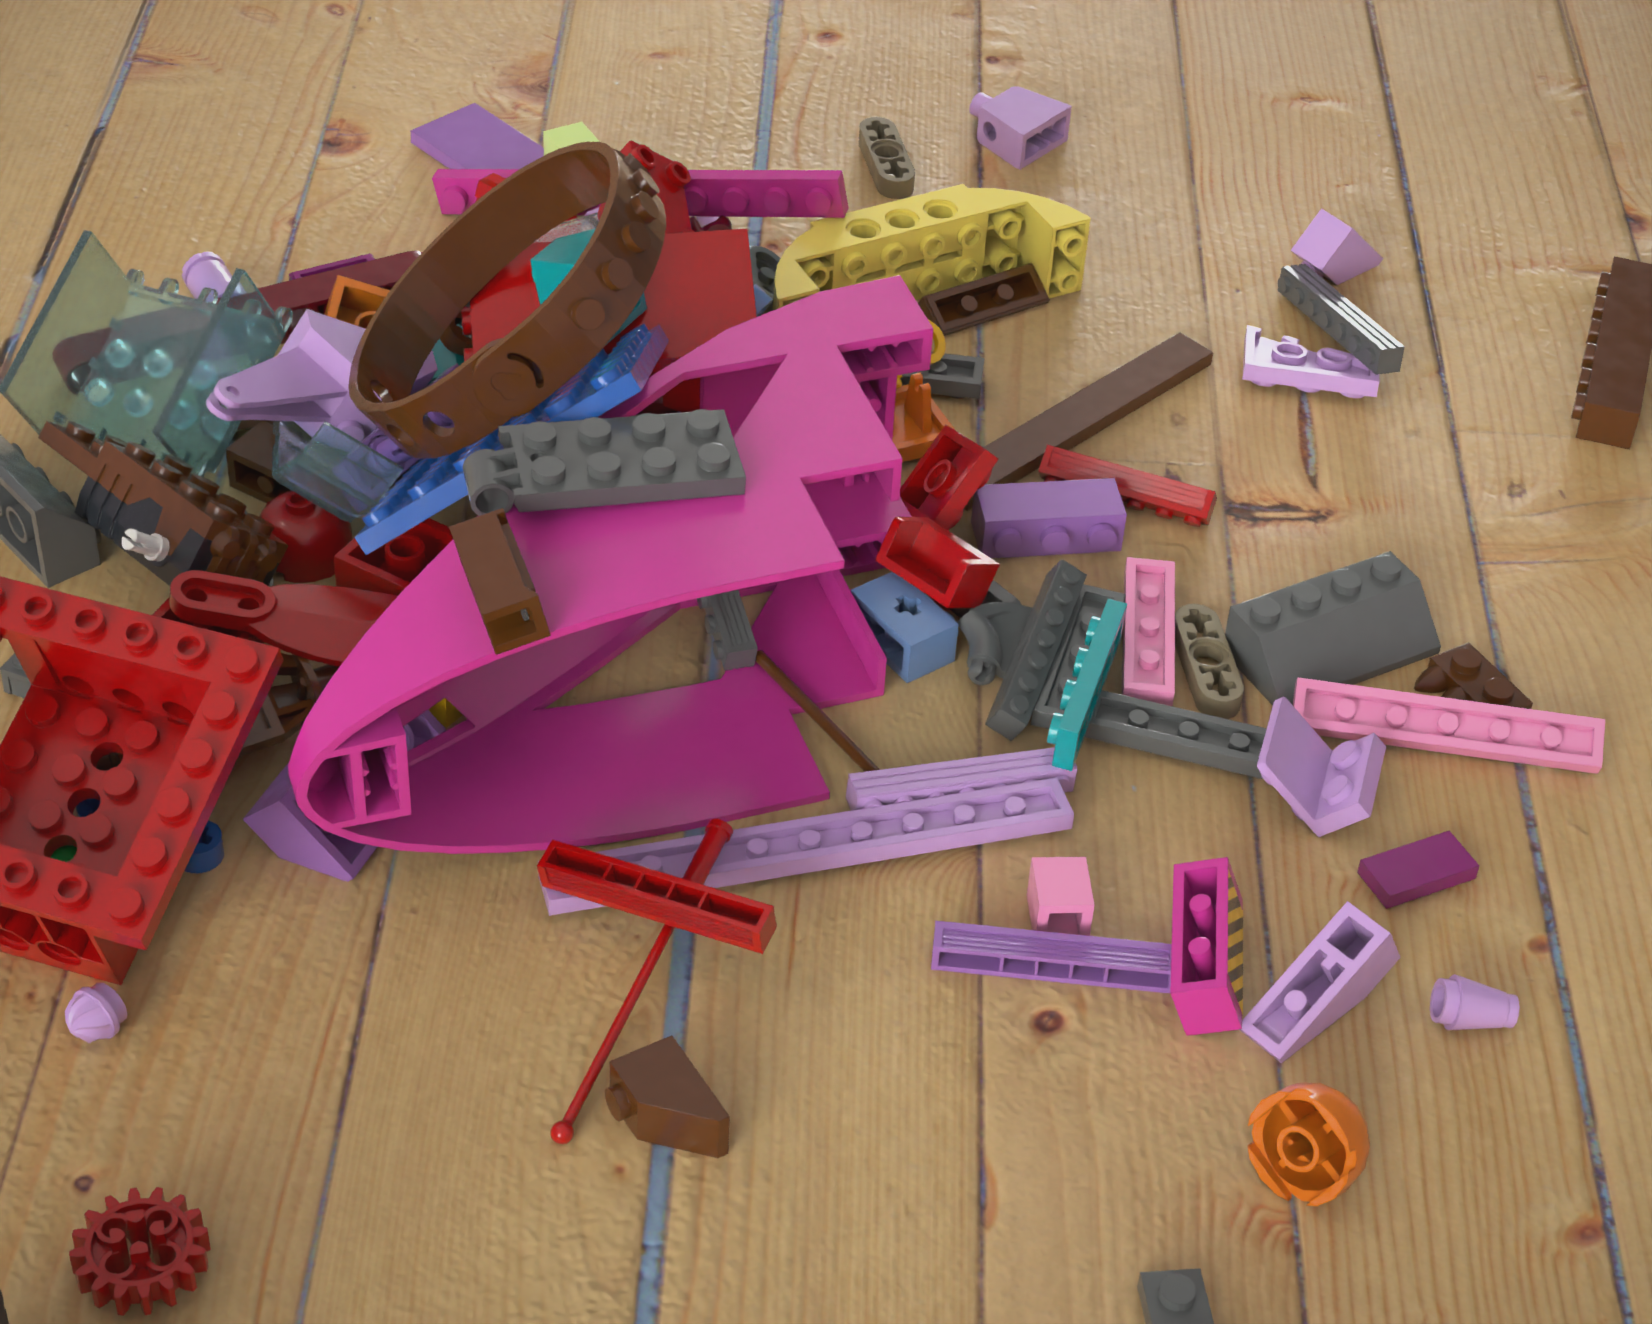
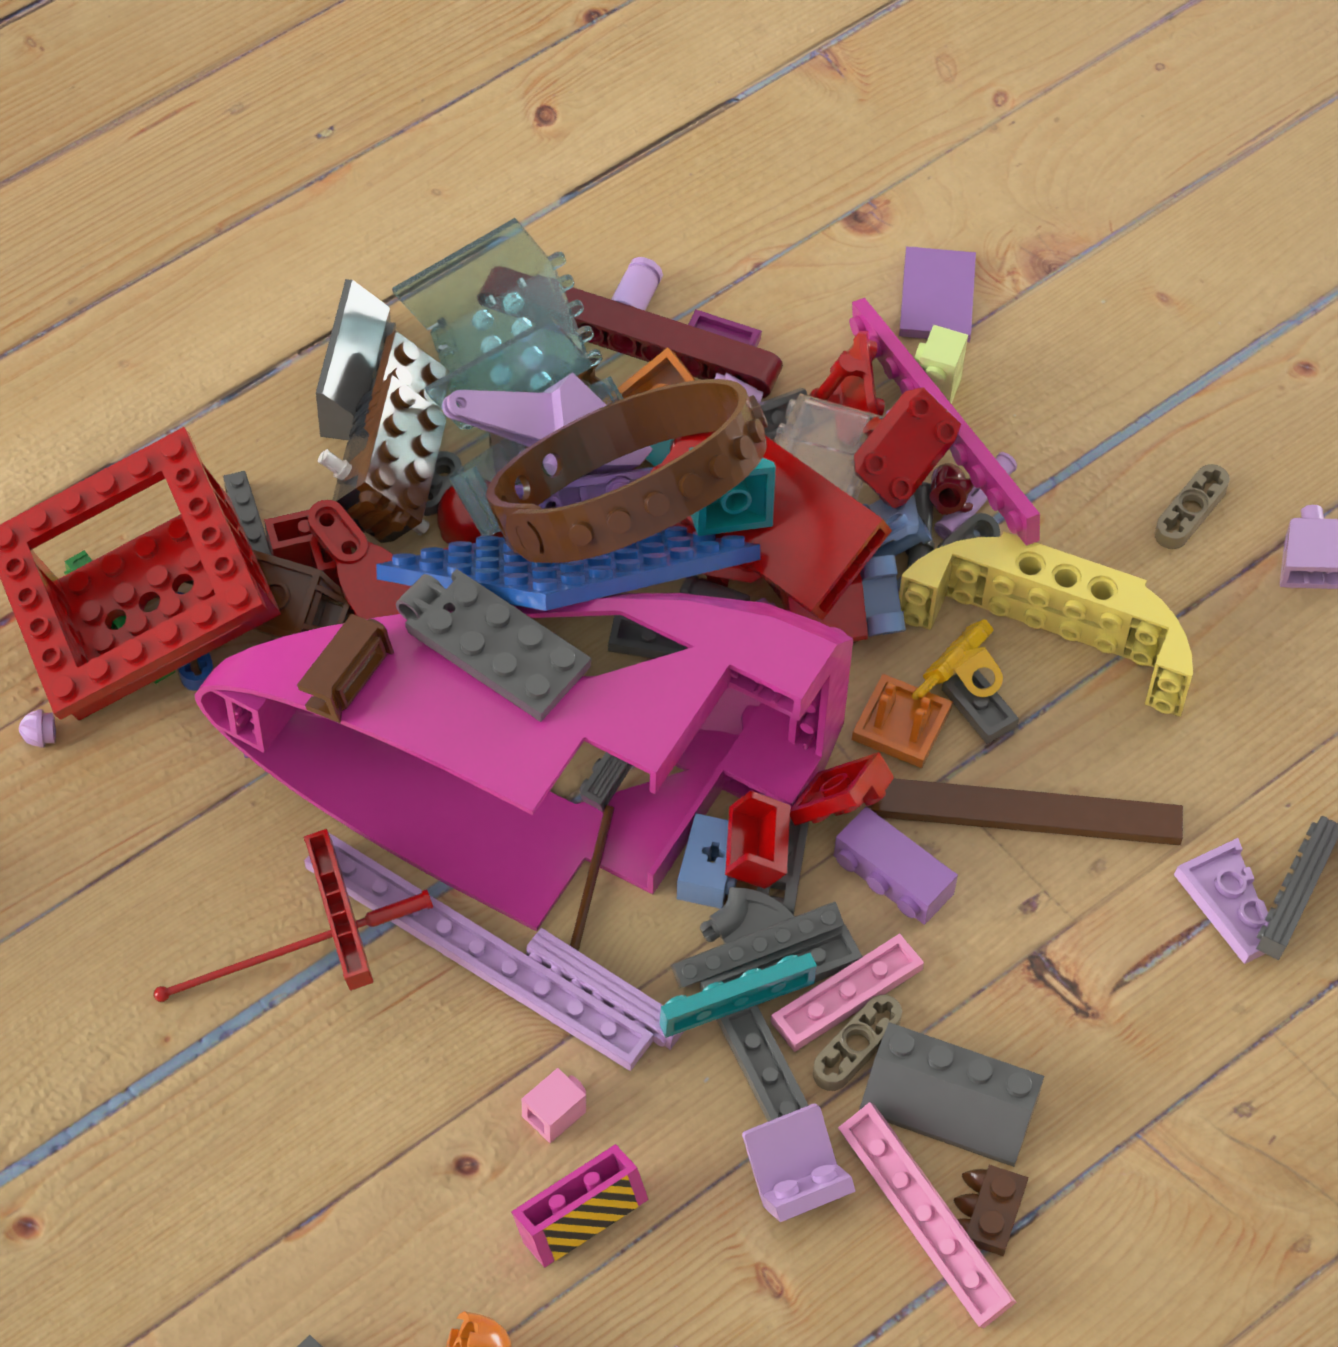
camera: 50 degrees right, 15 degrees up
(667, 1100) = (219, 1022): reddish brown slope -> none
(985, 299) = (1093, 674): reddish brown slope -> none
(1051, 956) = (504, 1125): medium lavender piece -> none
(1135, 486) = (980, 886): red piece -> none
(1322, 983) = (617, 1286): lavender slope -> none
(1418, 869) = (781, 1278): magenta tile -> none

